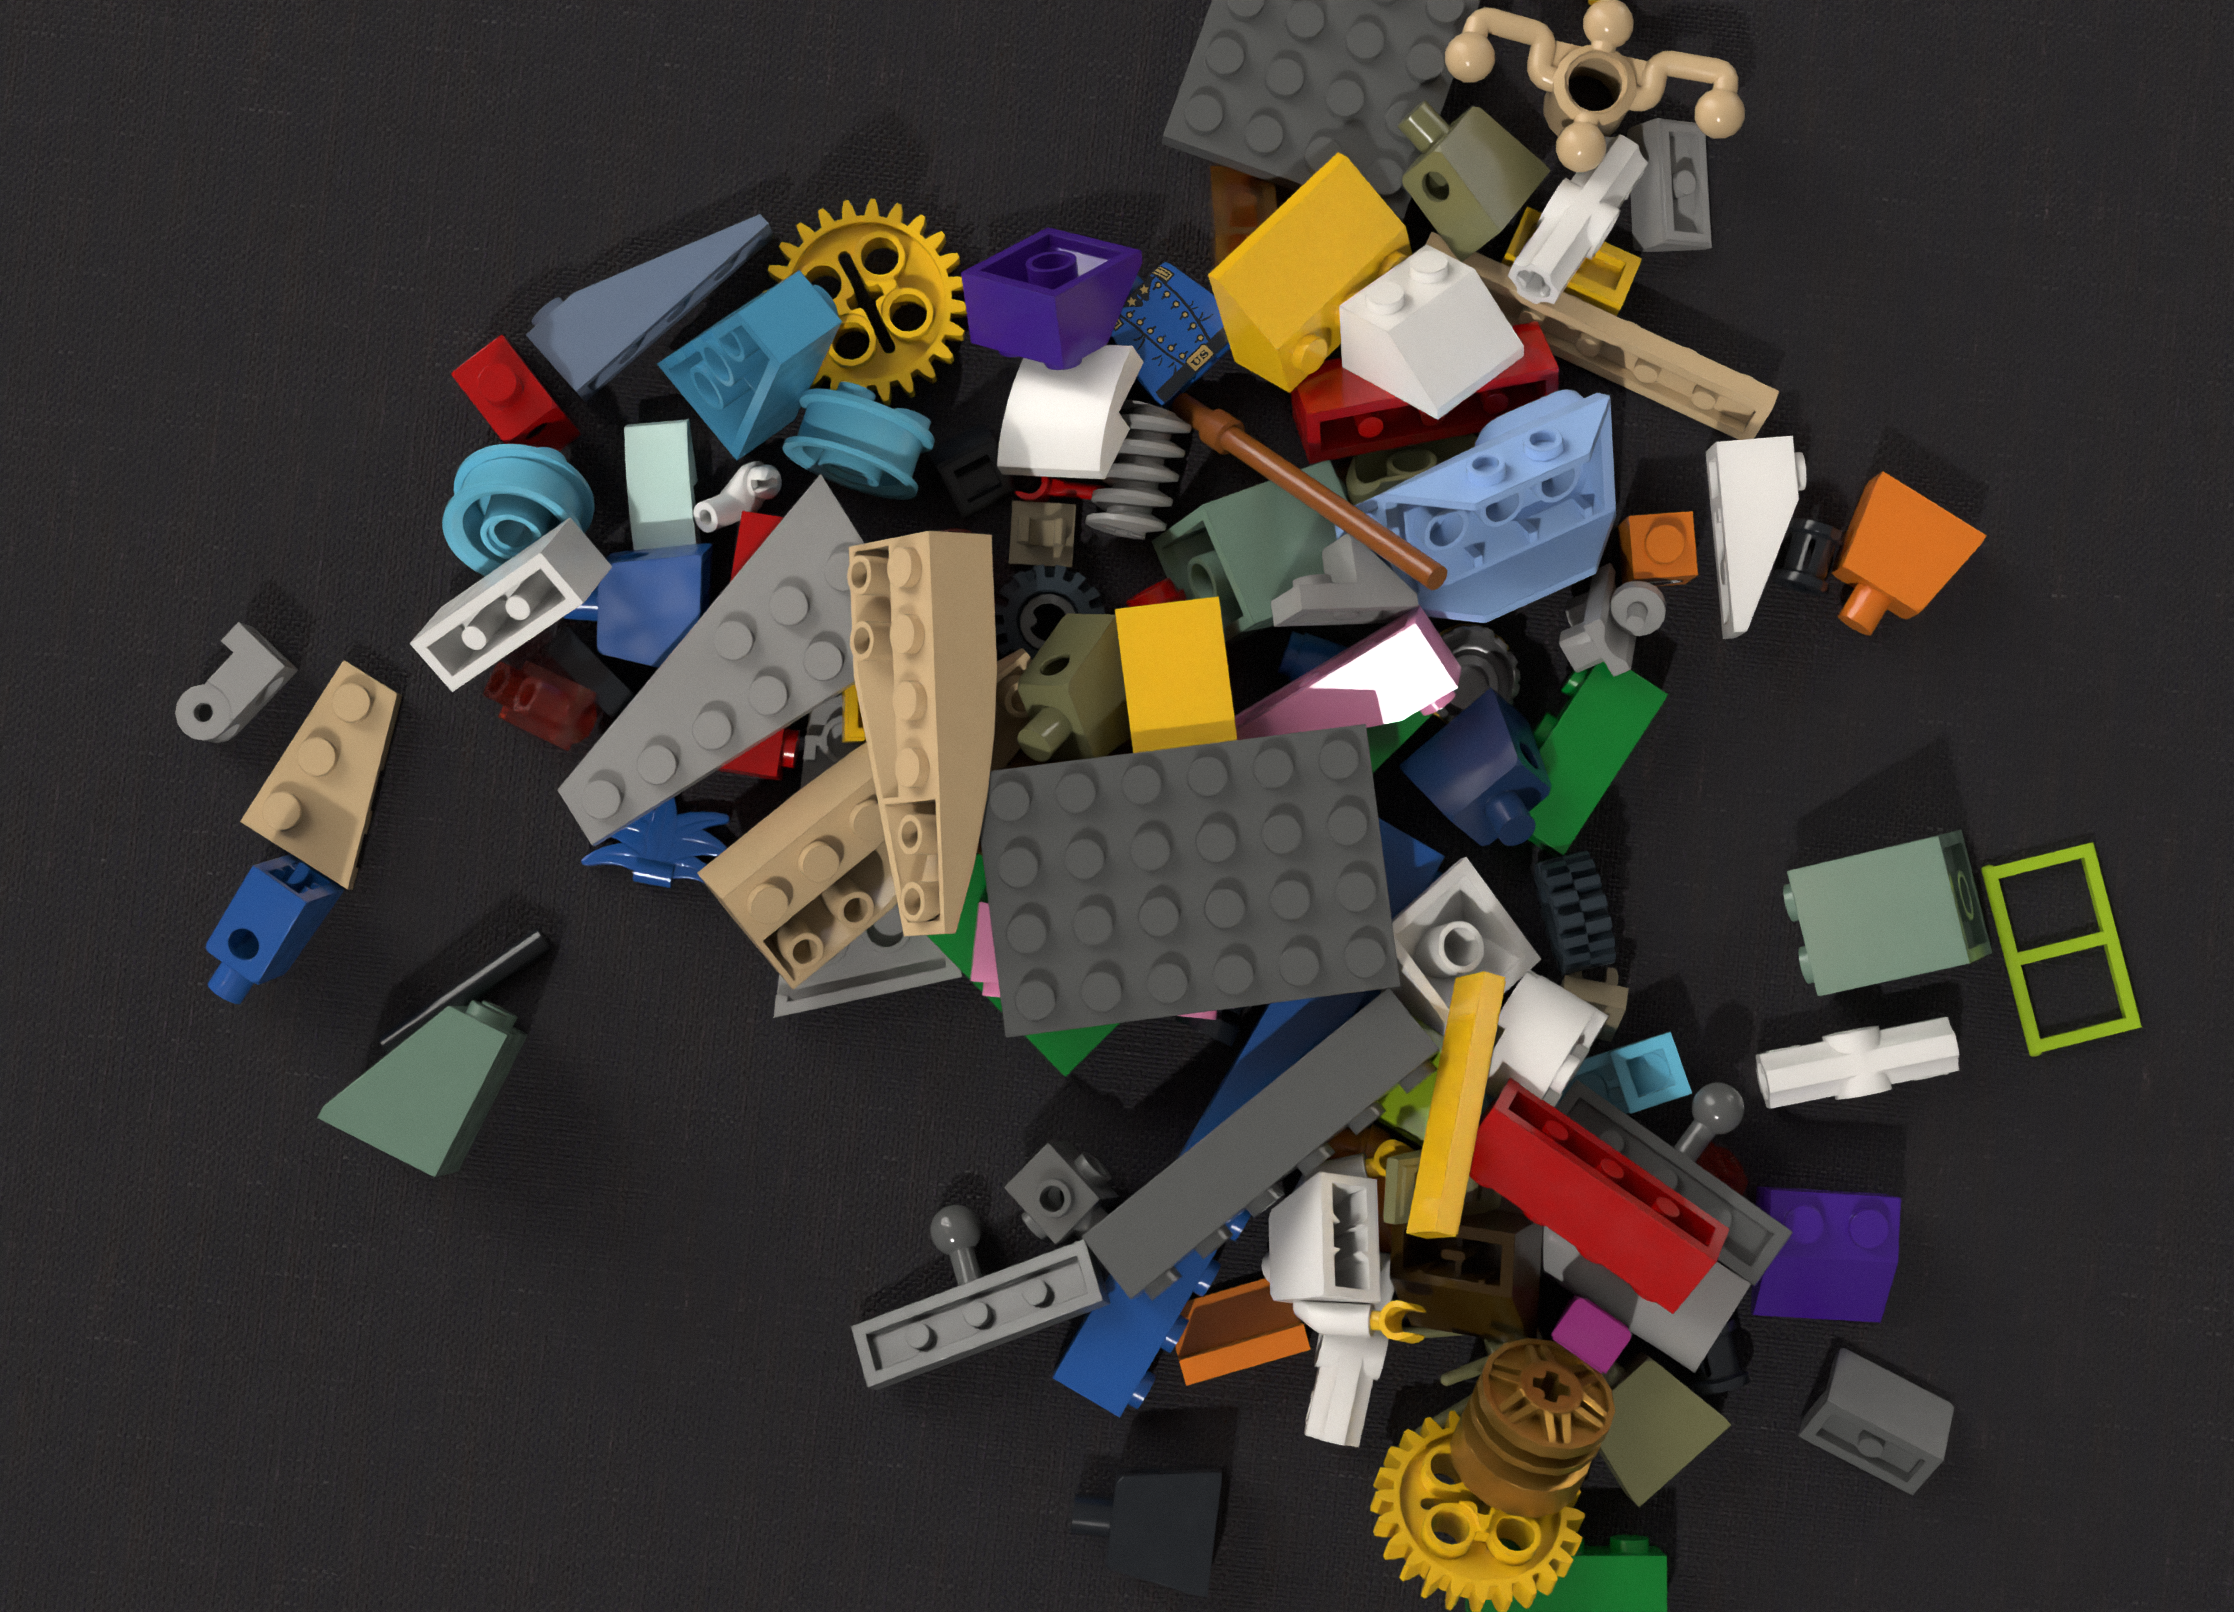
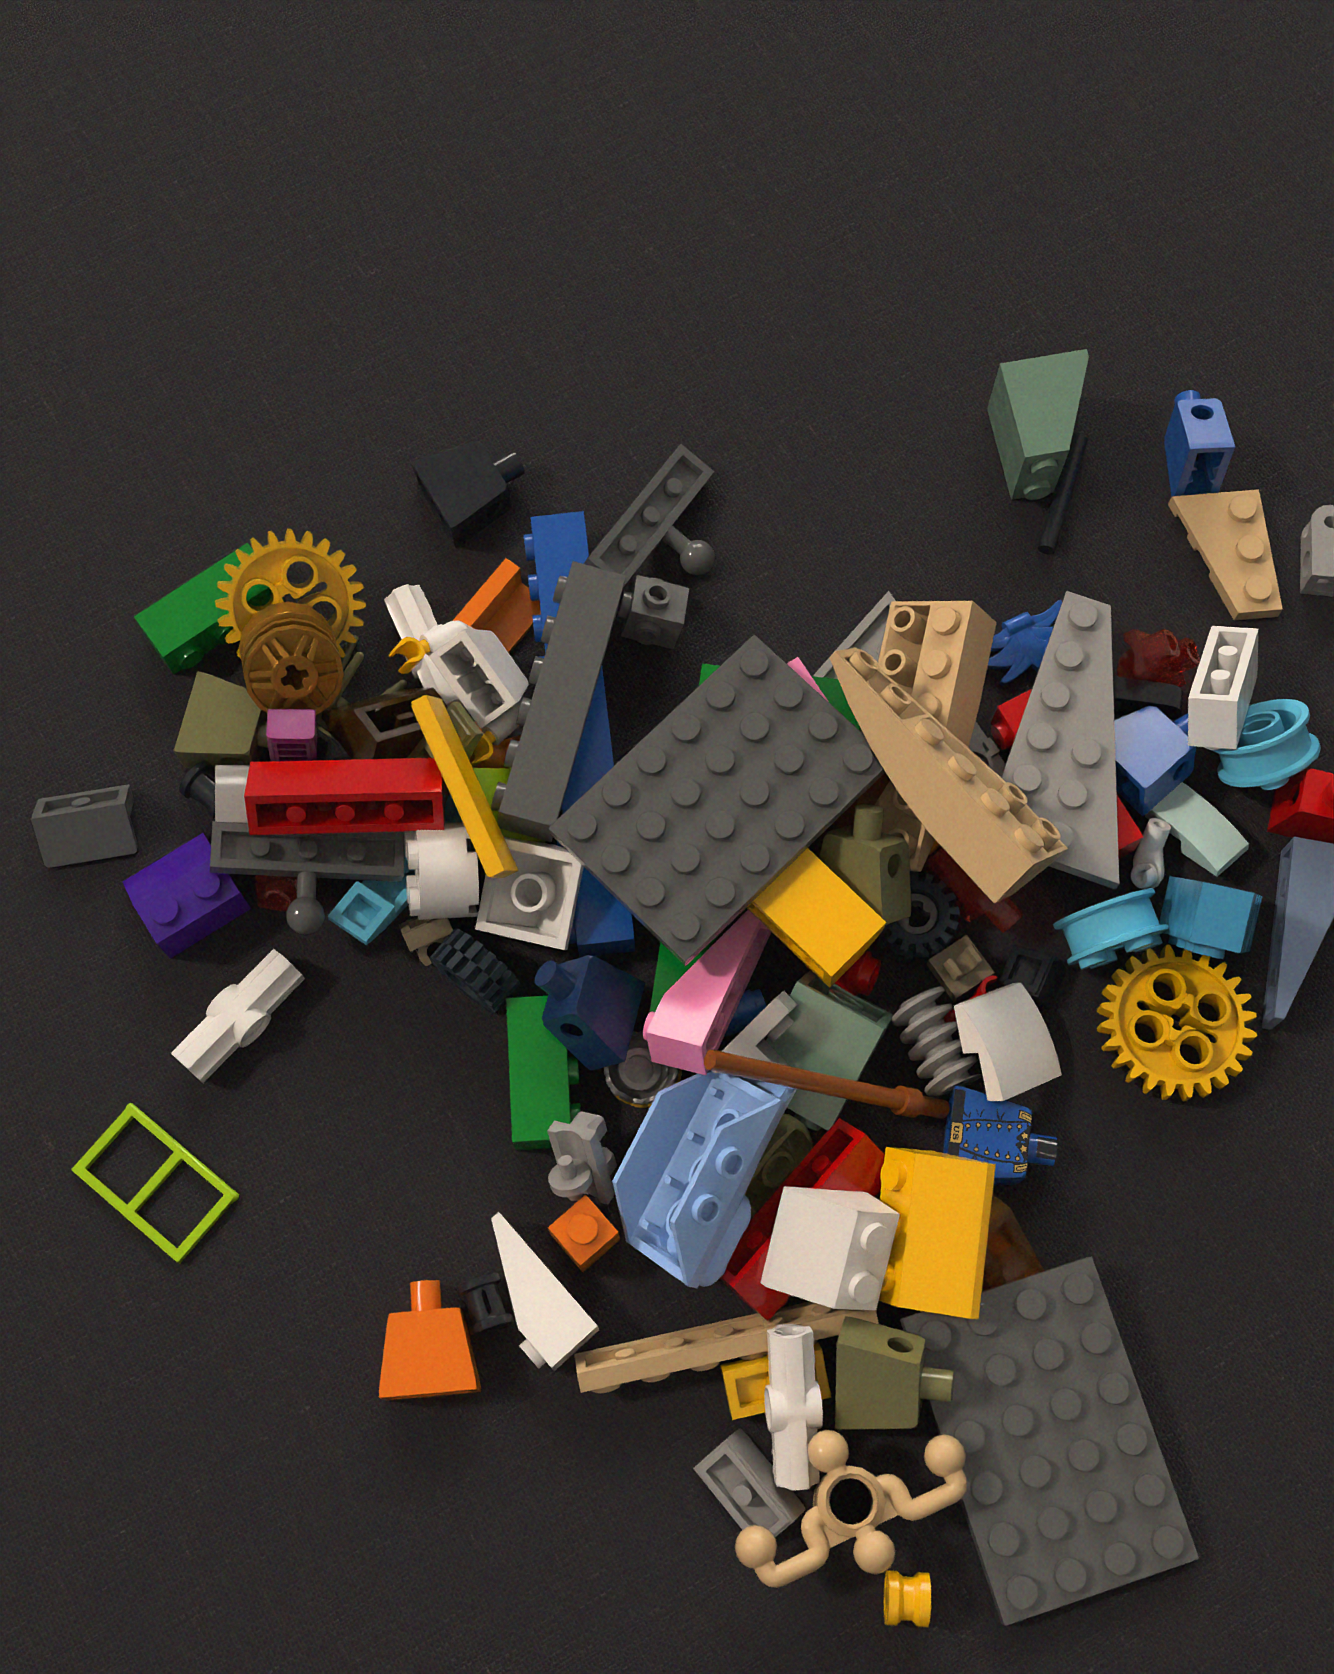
camera: 150 degrees right, 15 degrees down
(1049, 297) = (1075, 1102): dark purple slope -> none
(1887, 914) = (276, 1117): sand green slope -> none

